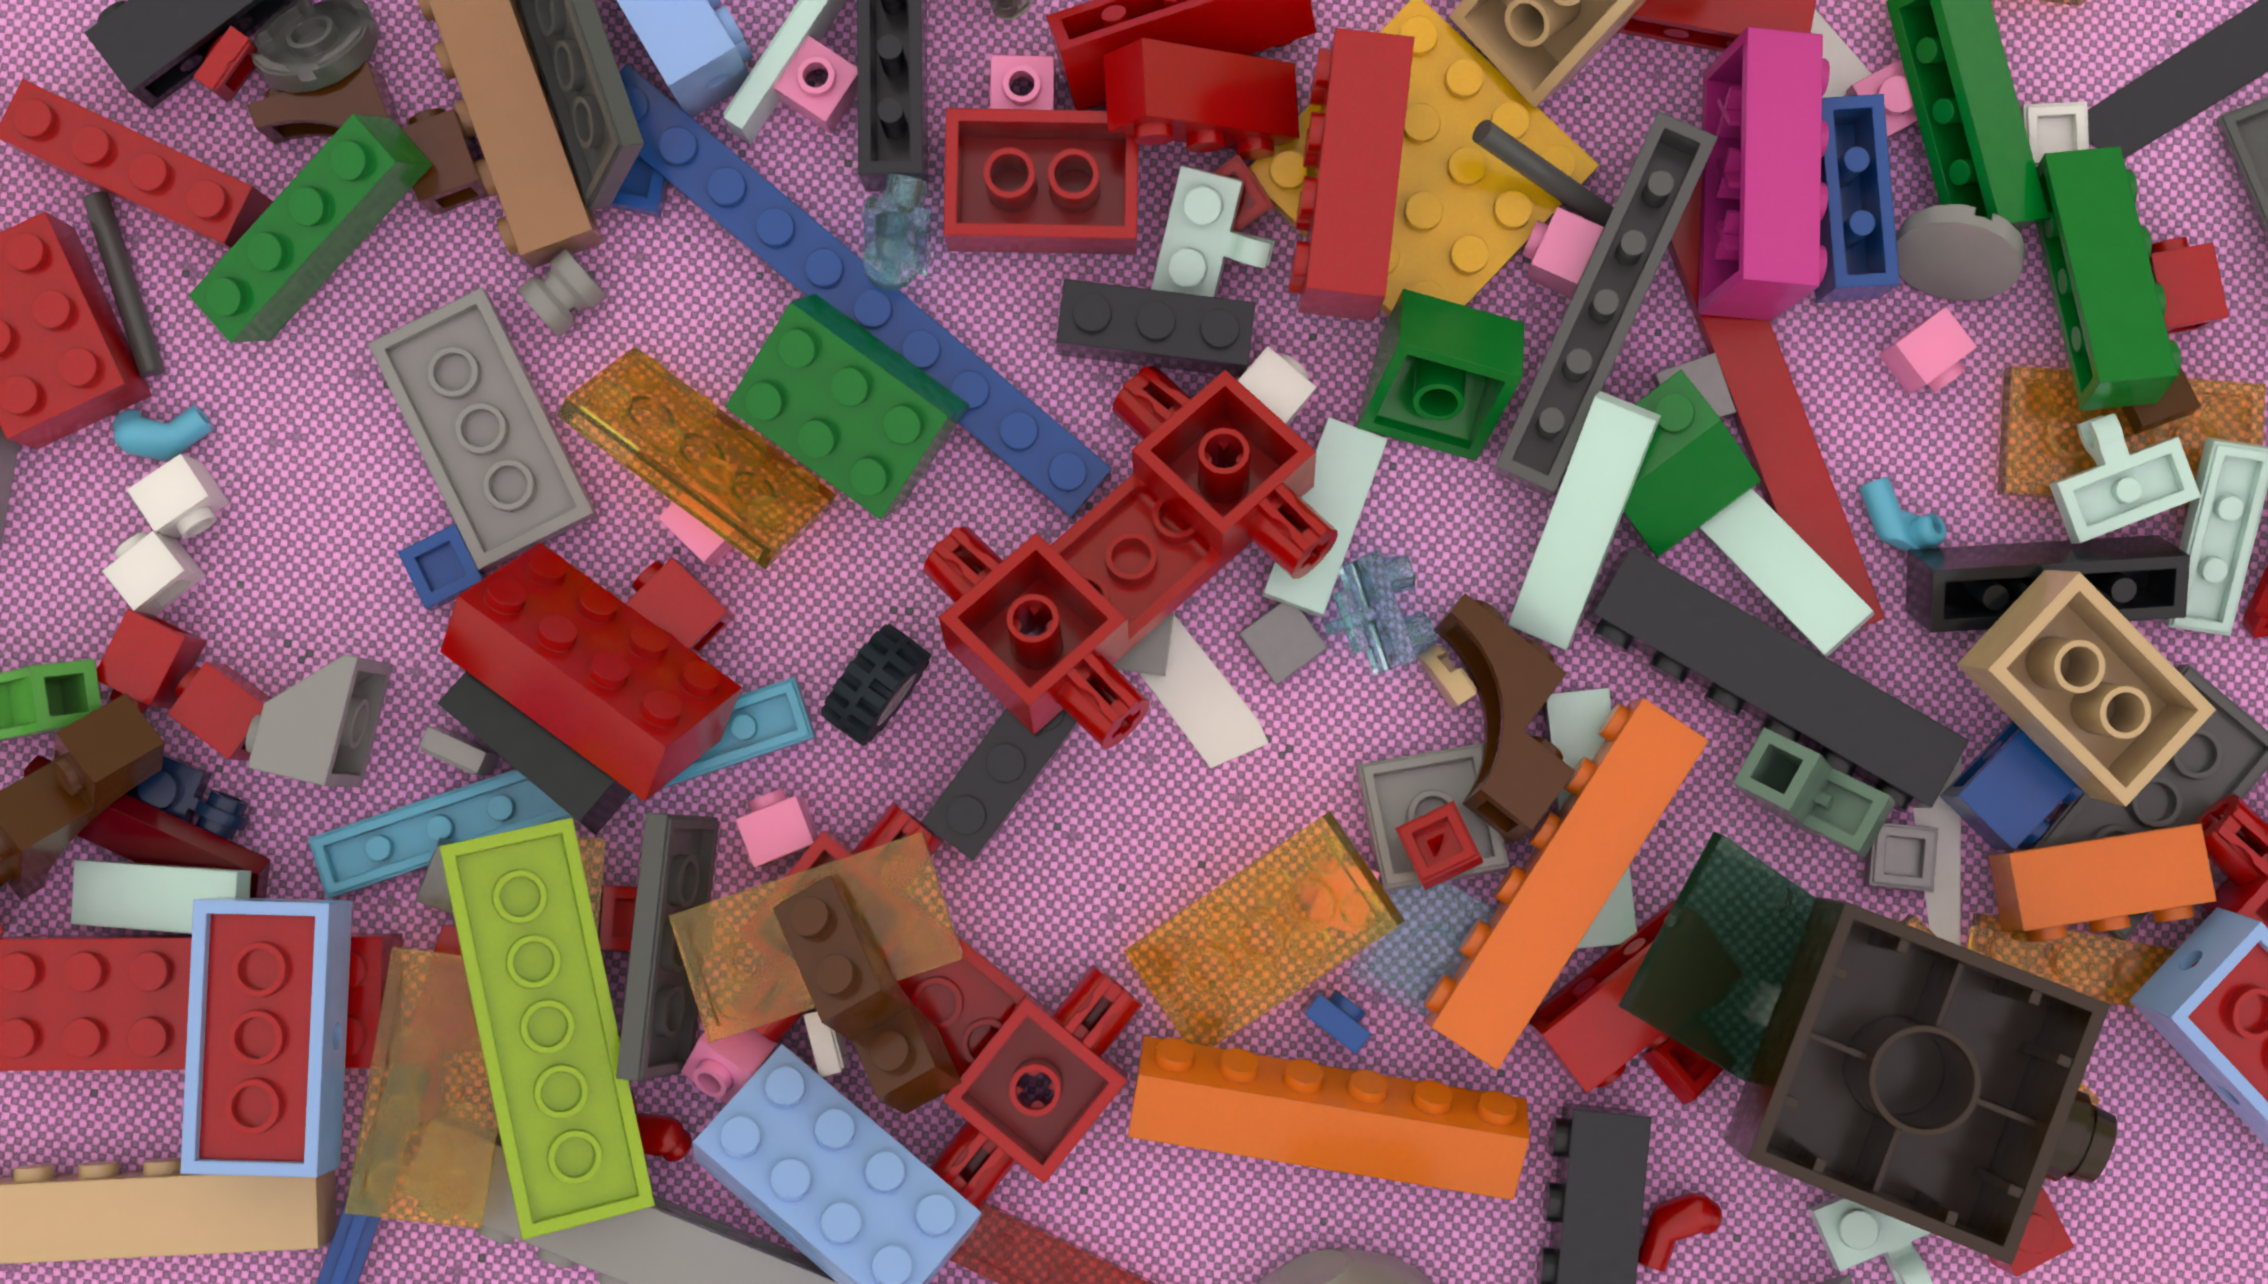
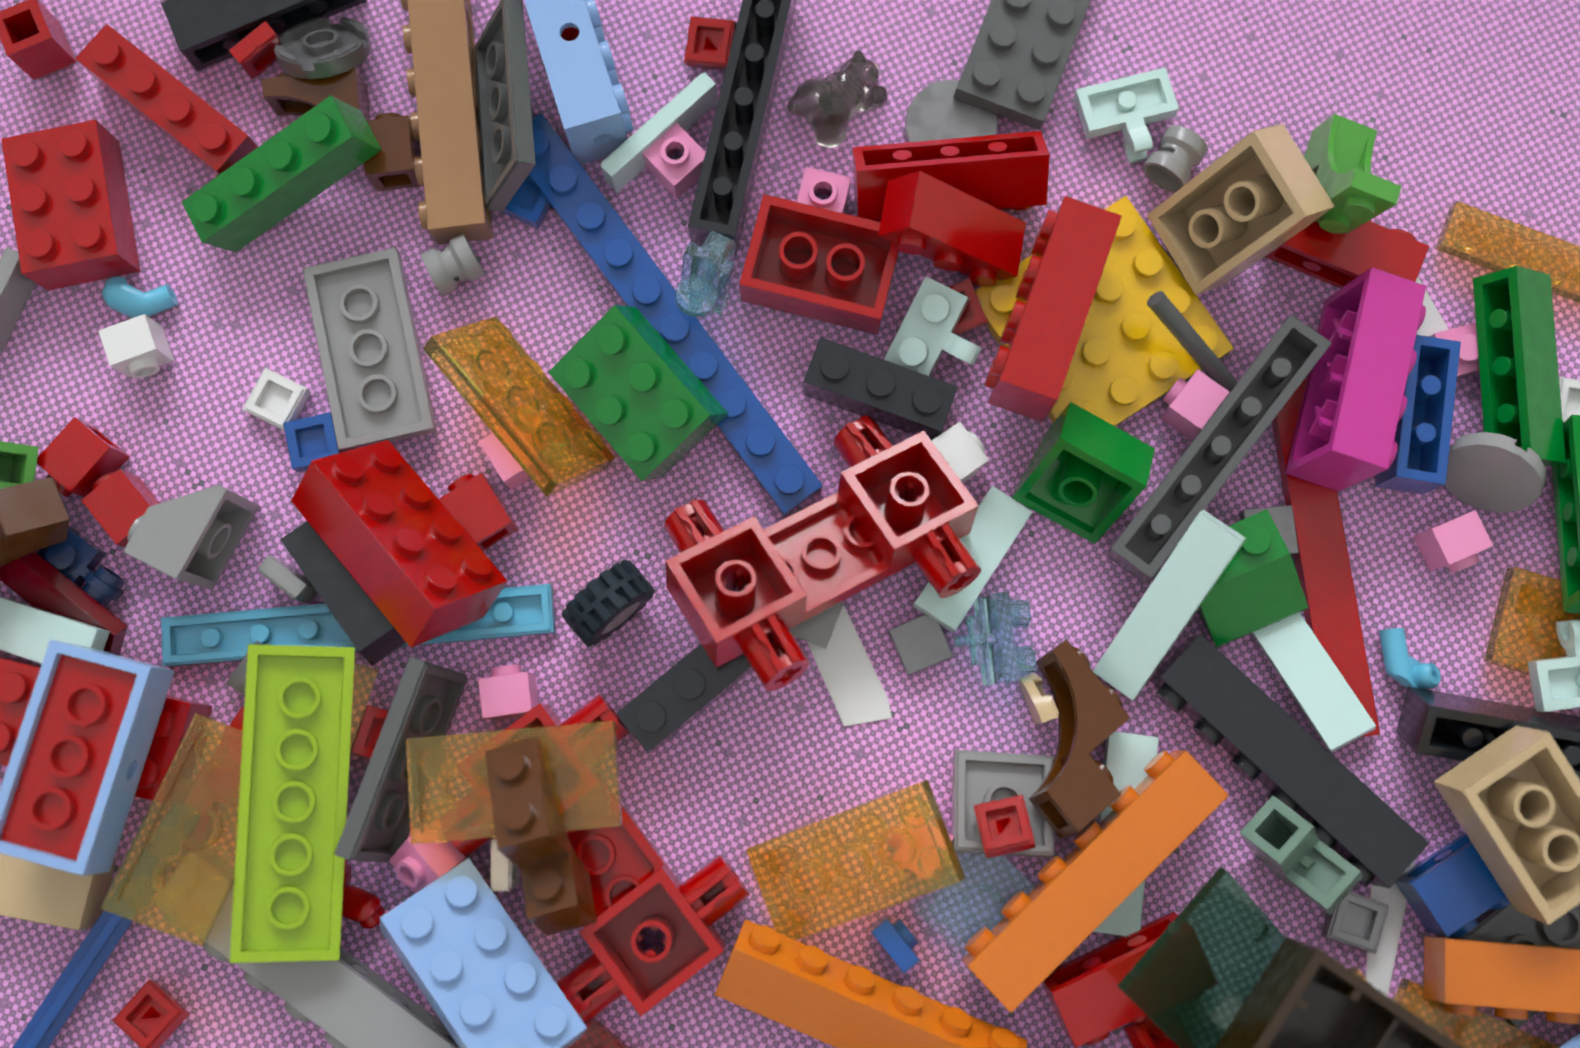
camera: 15 degrees right, 5 degrees down
(123, 284) = (141, 188): dark grey bar -> none
(152, 572) = (102, 396): white plate -> none
(378, 522) = (276, 399): none -> white tile

